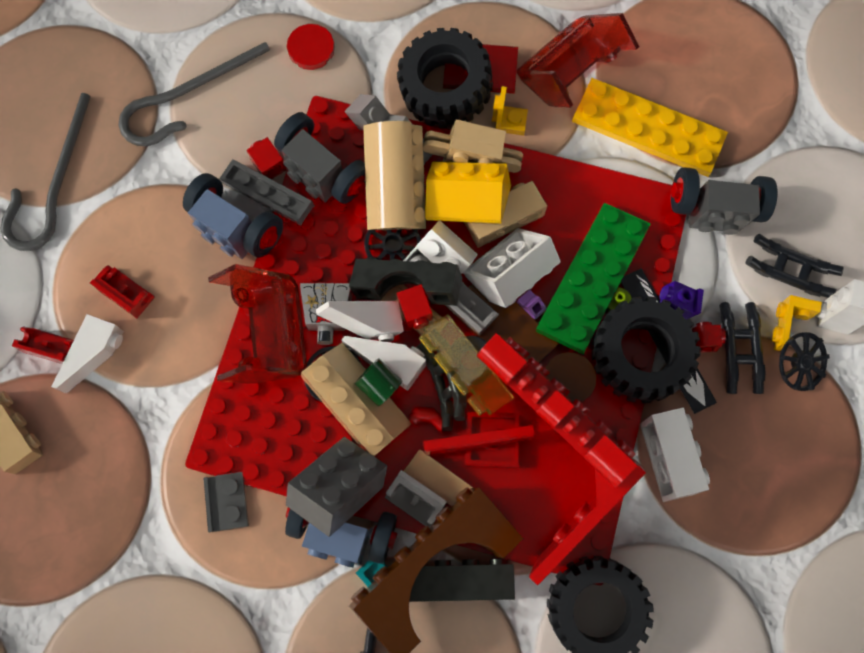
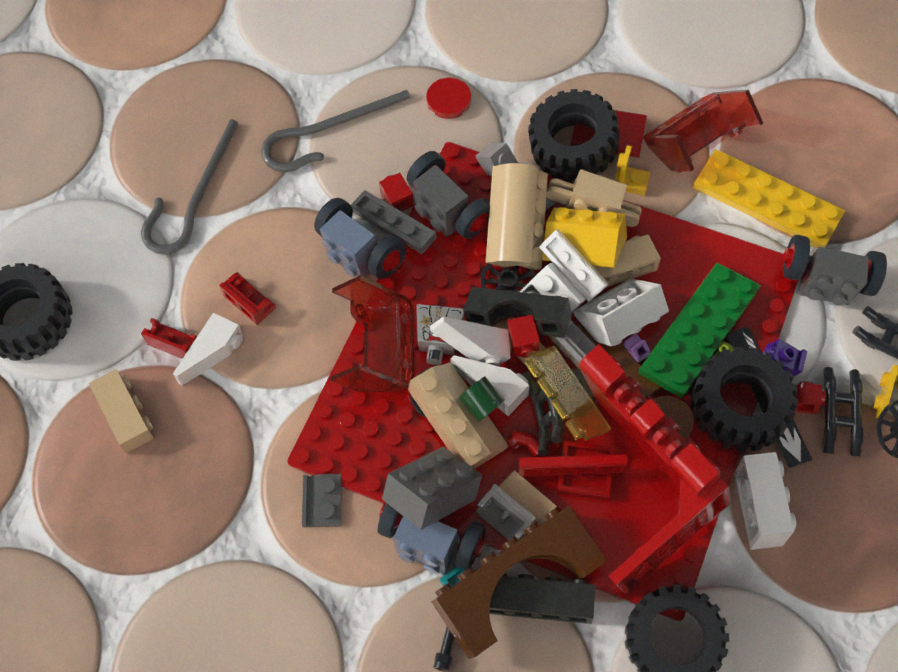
camera: 10 degrees right, 10 degrees down
(459, 224) = (573, 265): none -> white tile

